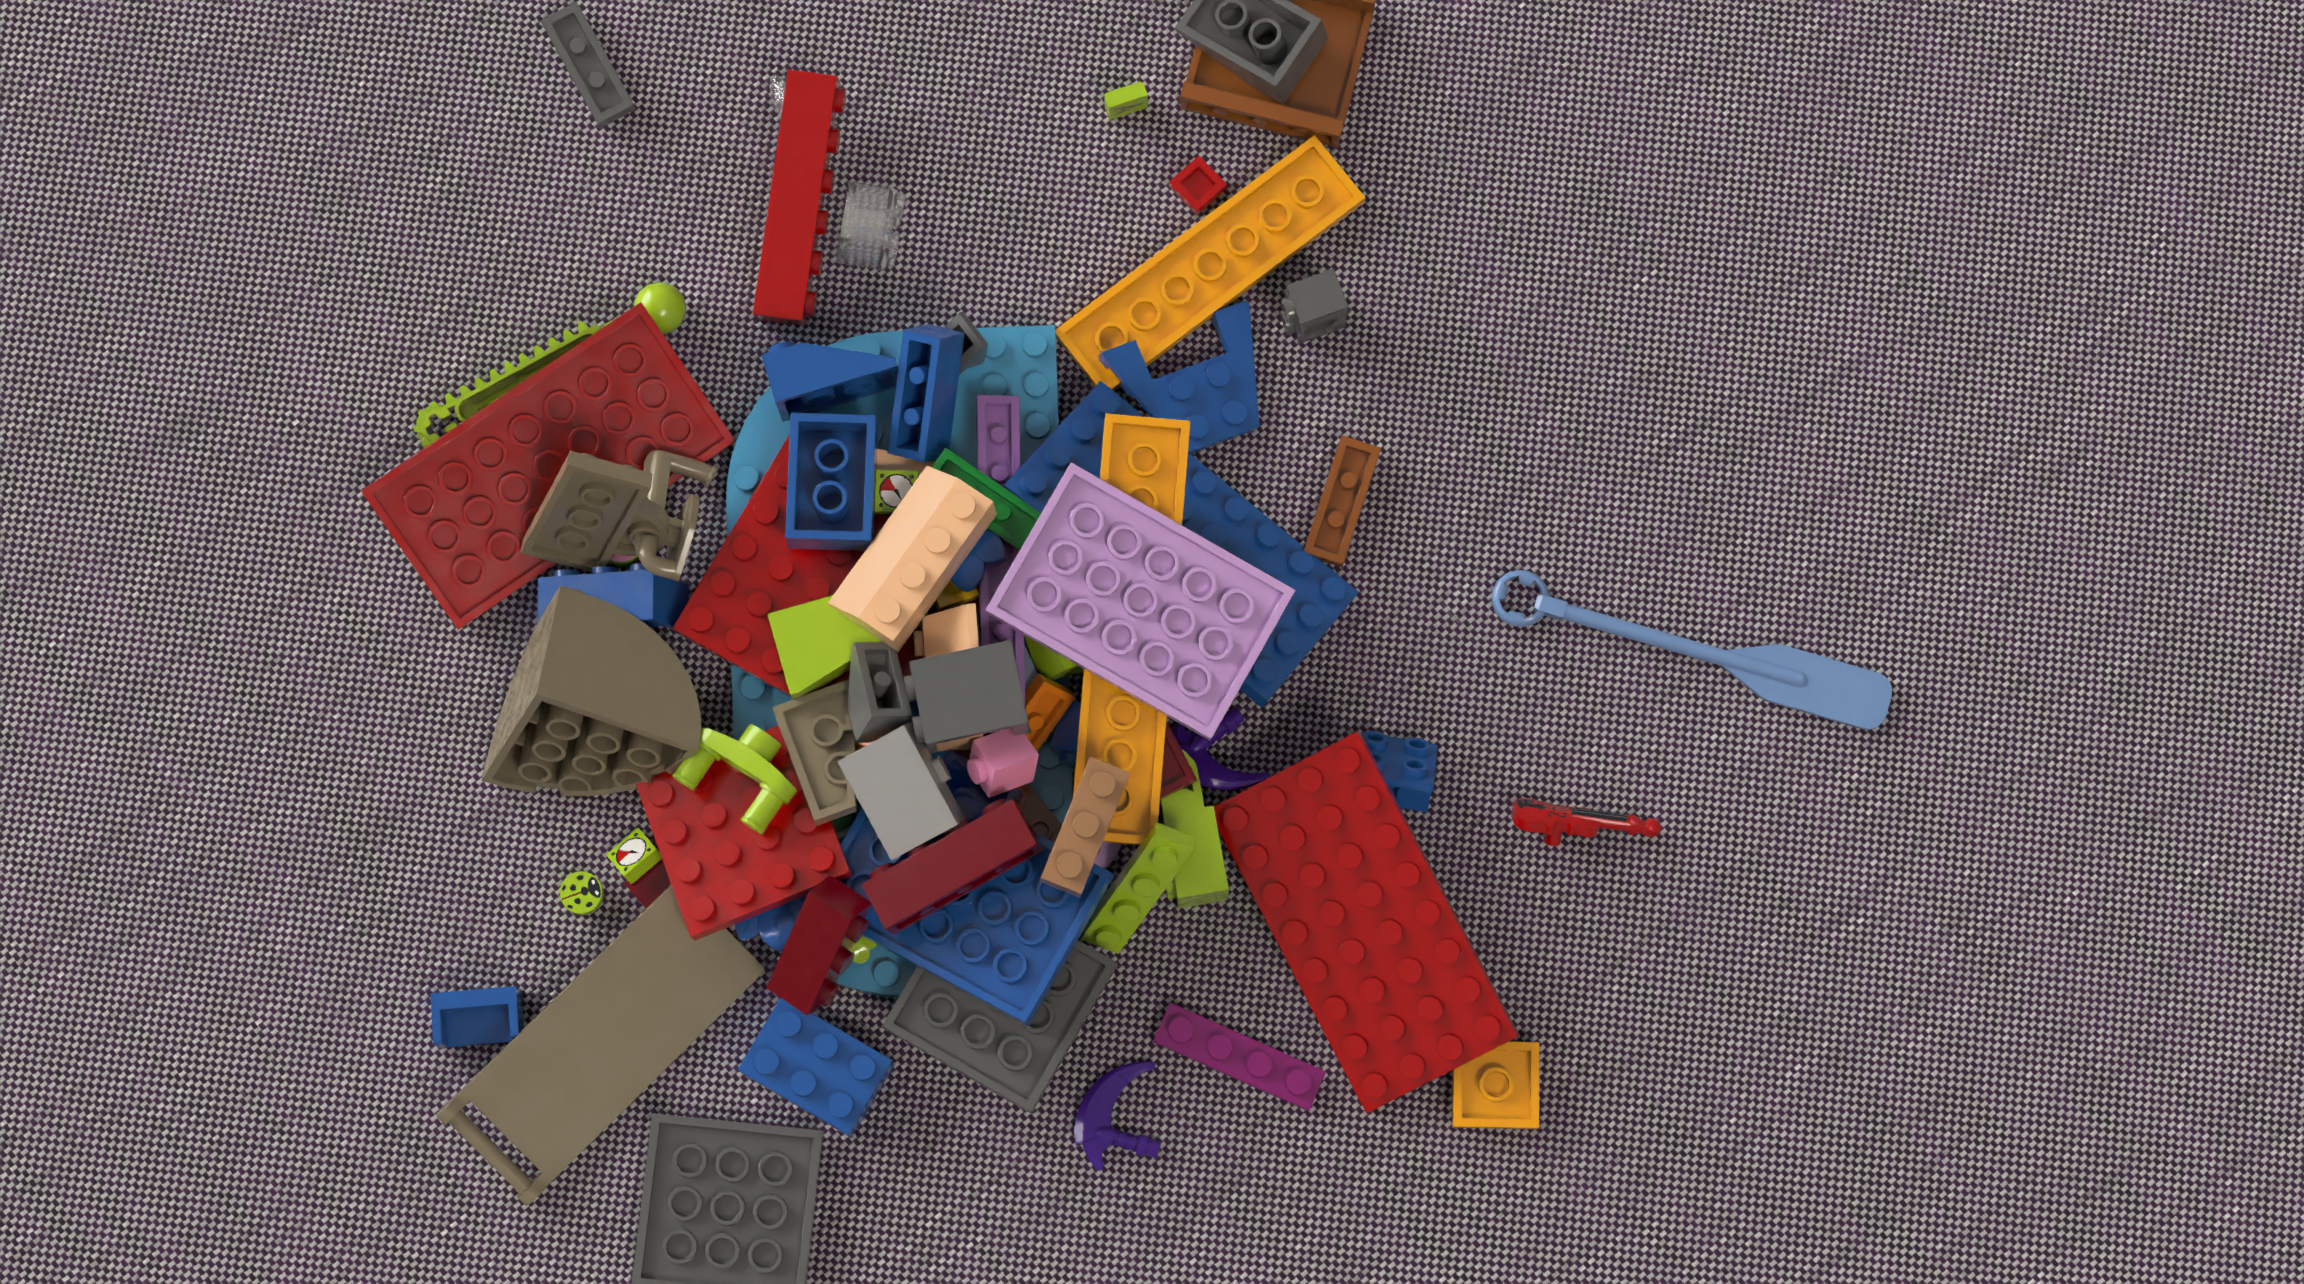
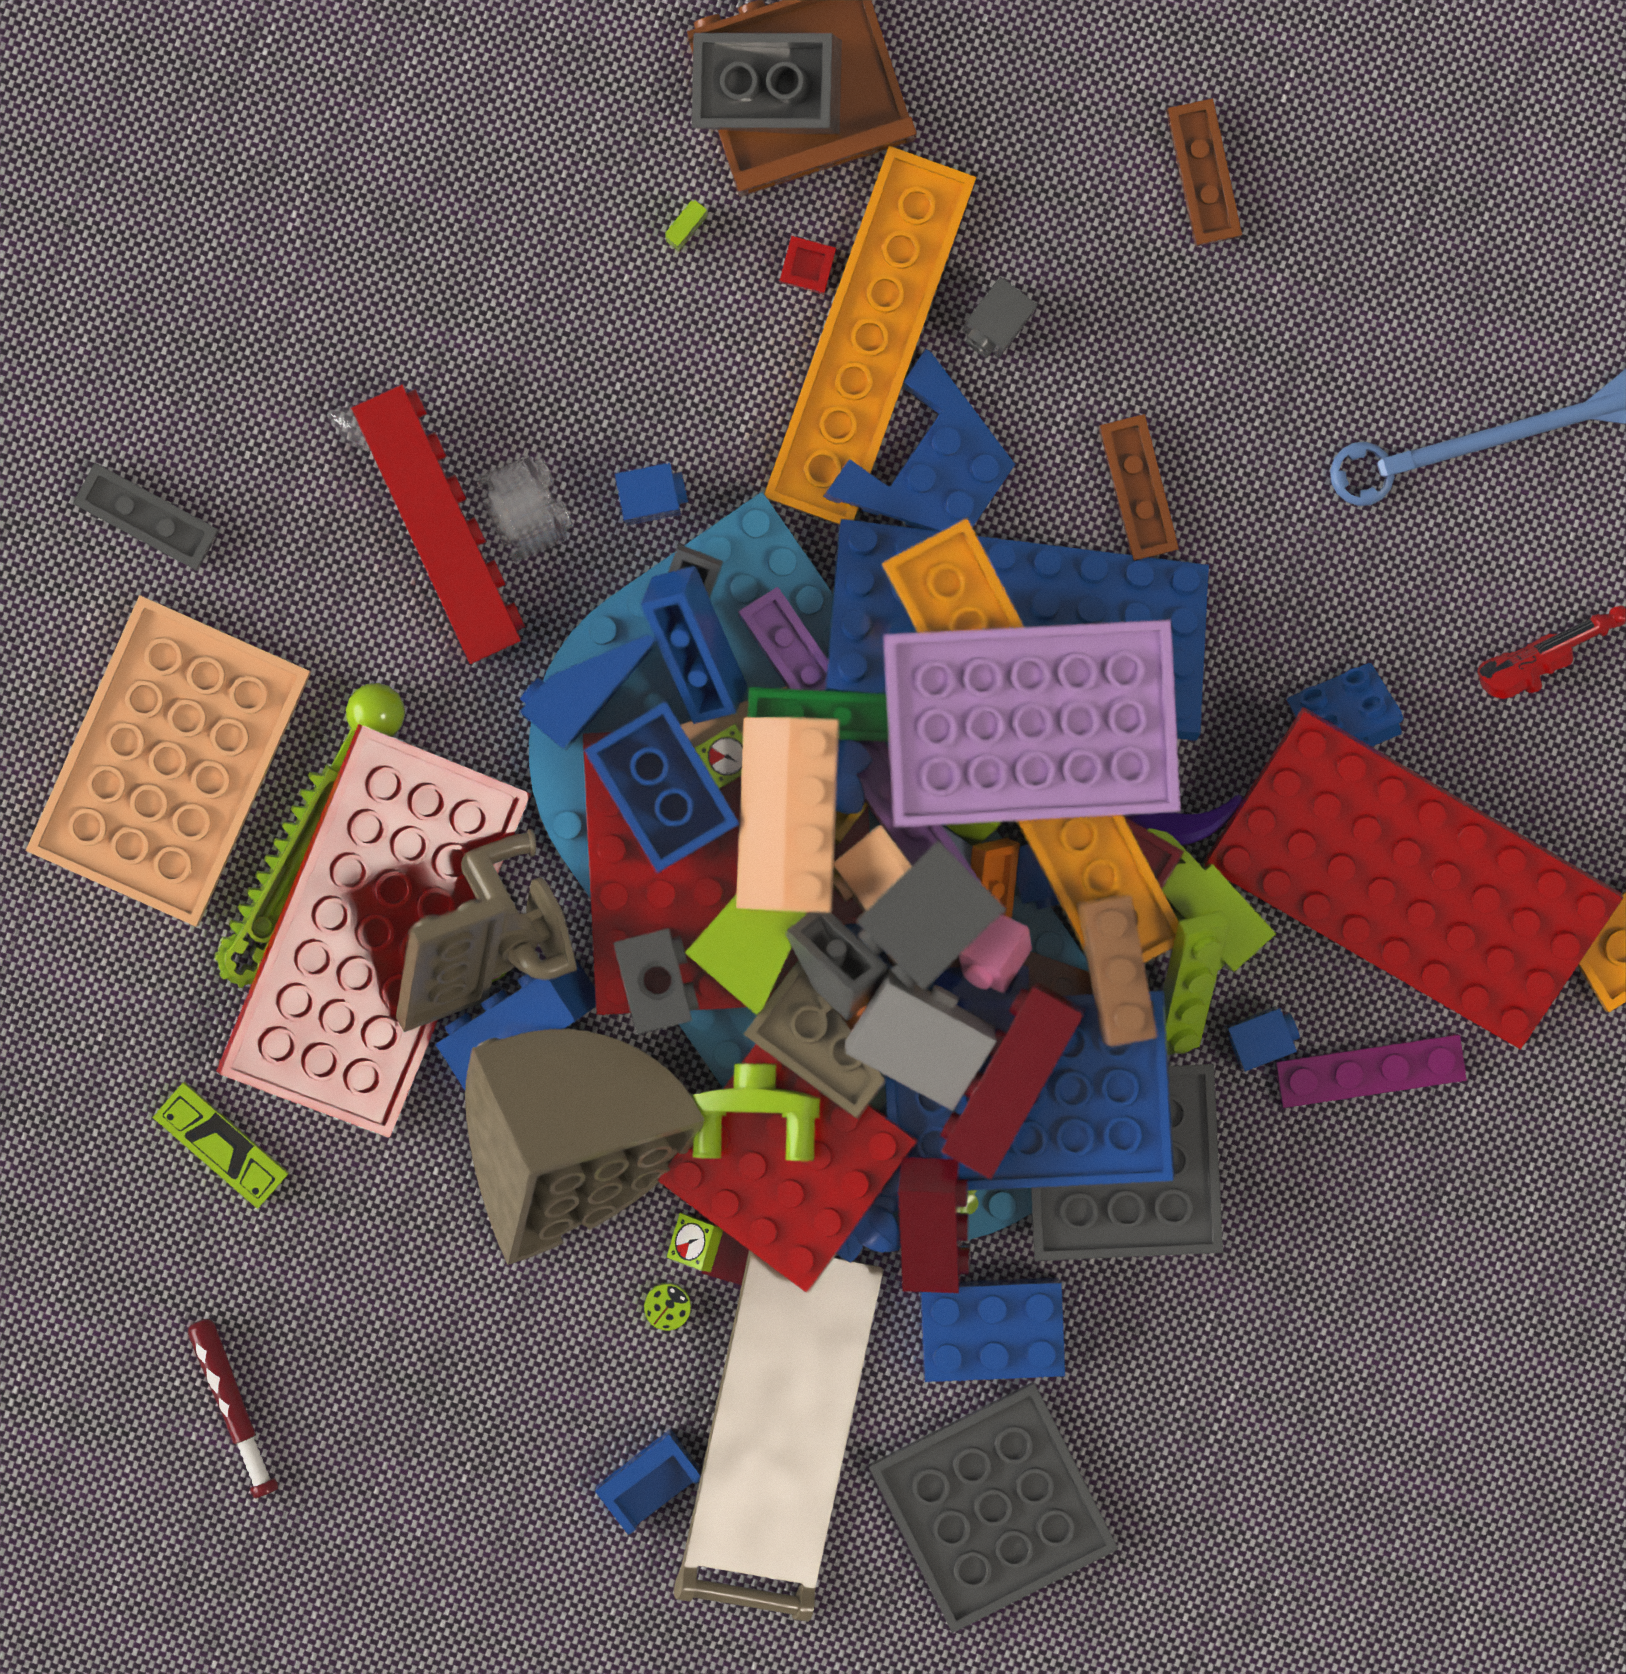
camera: 30 degrees left, 10 degrees up
(207, 740) = (224, 1387): none -> dark red piece
(329, 557) = (221, 1145): none -> lime tile
(483, 250) = (168, 761): none -> light nougat plate
(728, 599) = (649, 1009): none -> dark grey brick
(969, 273) = (650, 493): none -> blue brick
(1095, 1112) = (1273, 1211): dark purple piece -> none
(1171, 975) = (1262, 1037): none -> blue brick
(1540, 300) = (1204, 172): none -> dark orange plate

